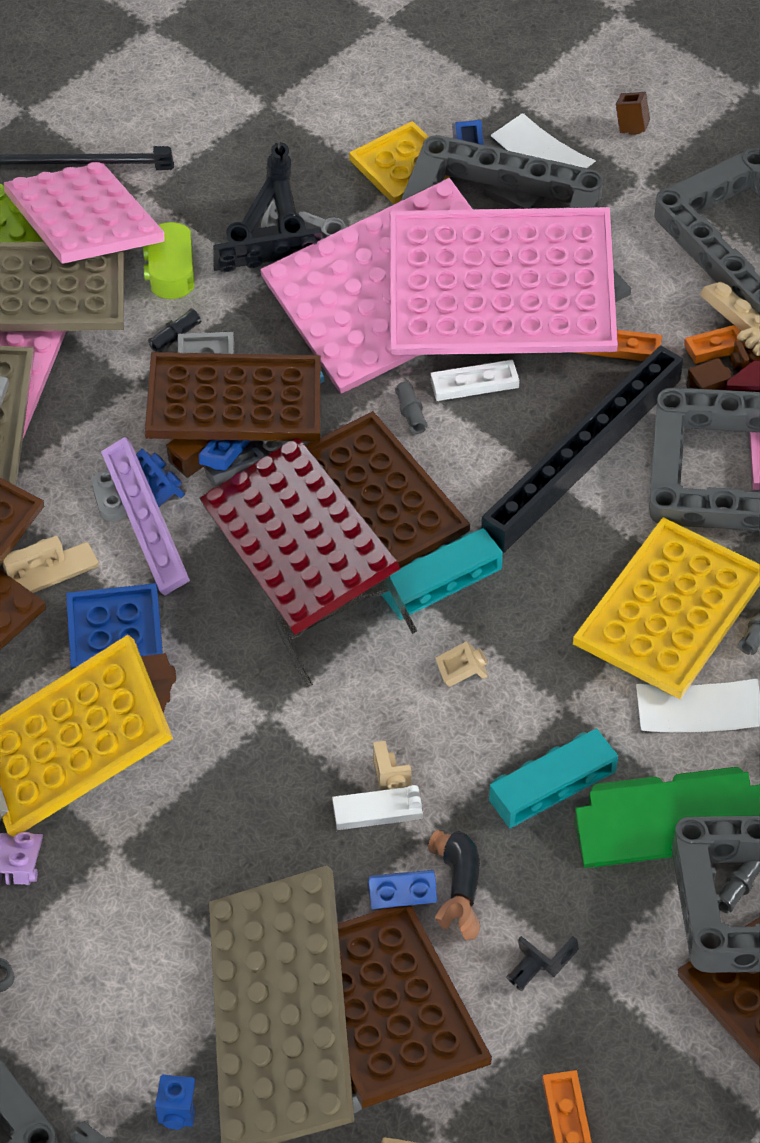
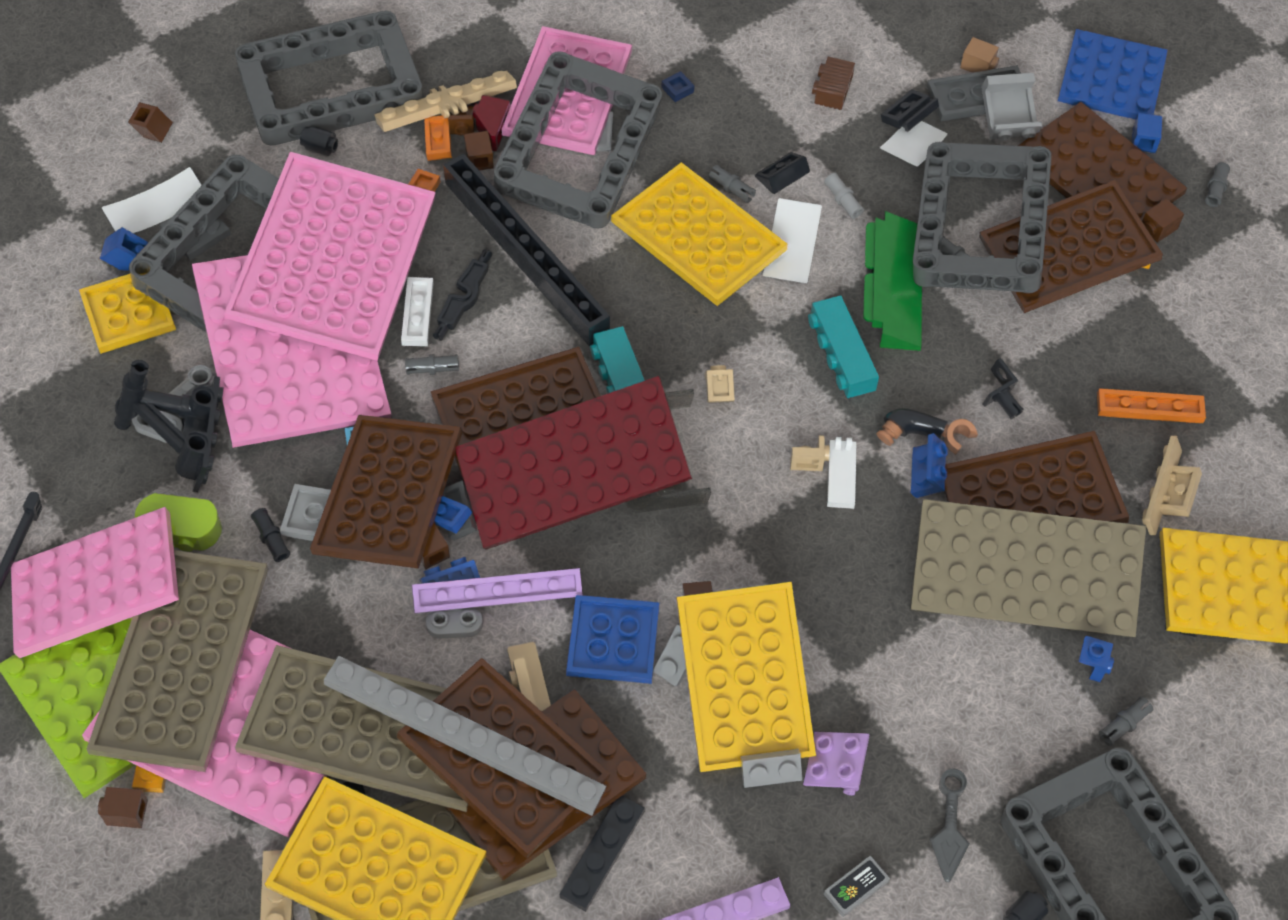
camera: 80 degrees left, 5 degrees up
(498, 413) = (458, 304): none -> black piece
(668, 247) = (319, 140): none -> black brick

